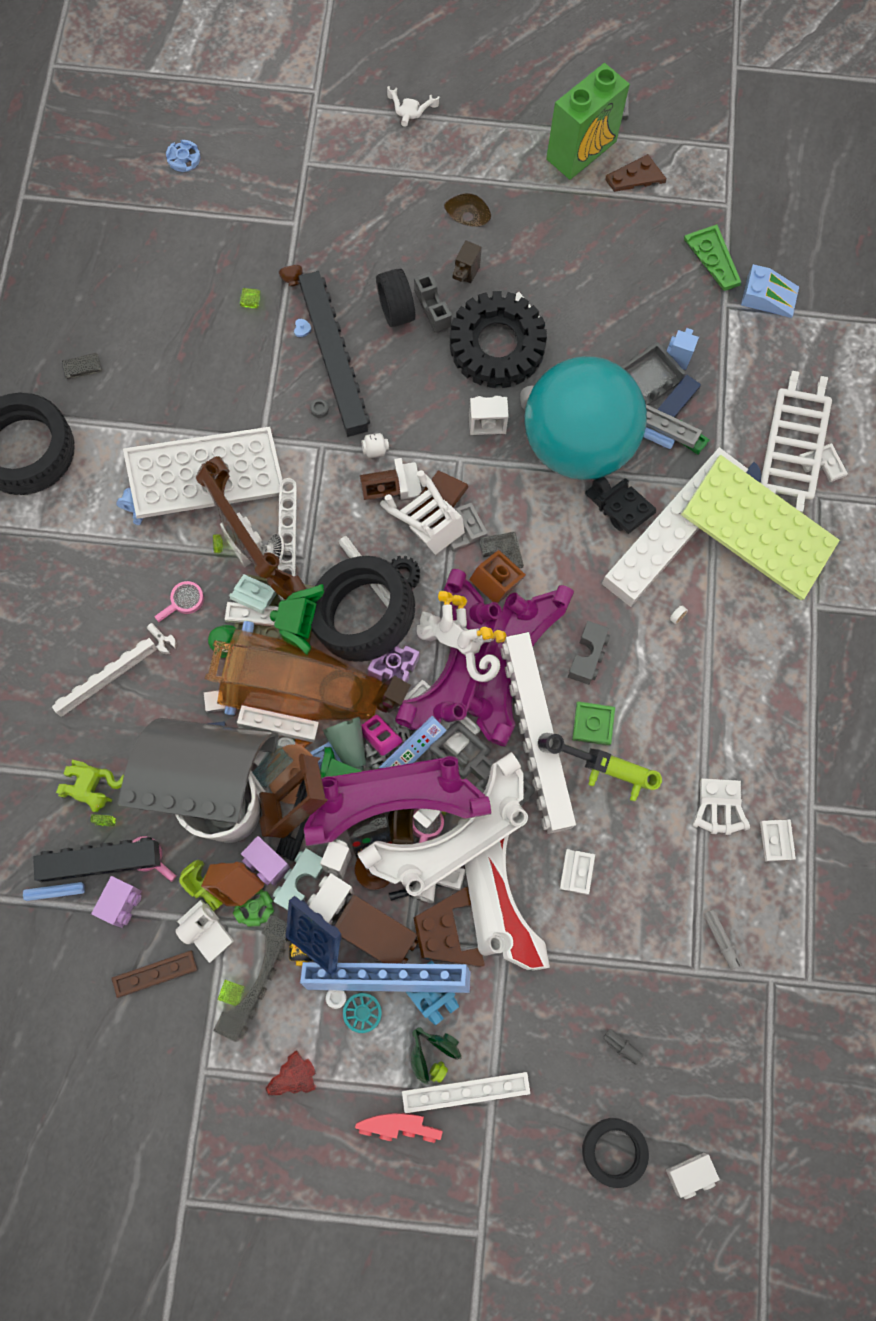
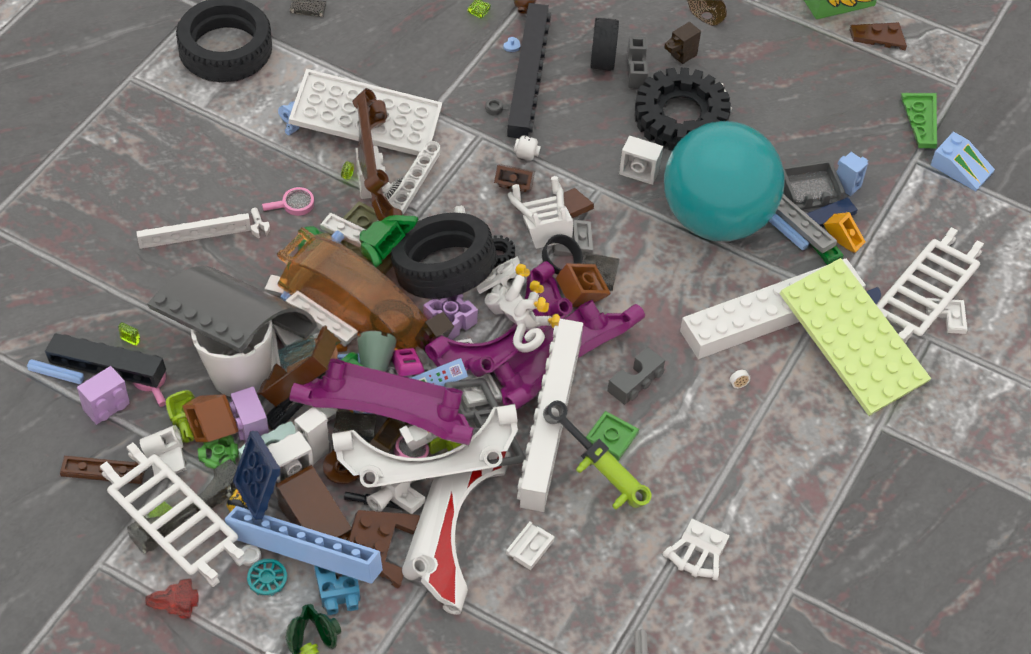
camera: 25 degrees right, 20 degrees down
(86, 783) = (129, 302): lime animal -> none
(238, 1024) = (138, 515): none -> white bar
(253, 594) = (355, 213): light aqua plate -> none
(408, 479) = (541, 184): white panel -> none
(426, 599) = (500, 274): none -> white piece
(474, 543) = (568, 242): none -> black tyre
(622, 504) = (729, 271): black plate -> none
(700, 414) = (845, 231): none -> light orange slope
(777, 840) = (740, 599): white plate -> none

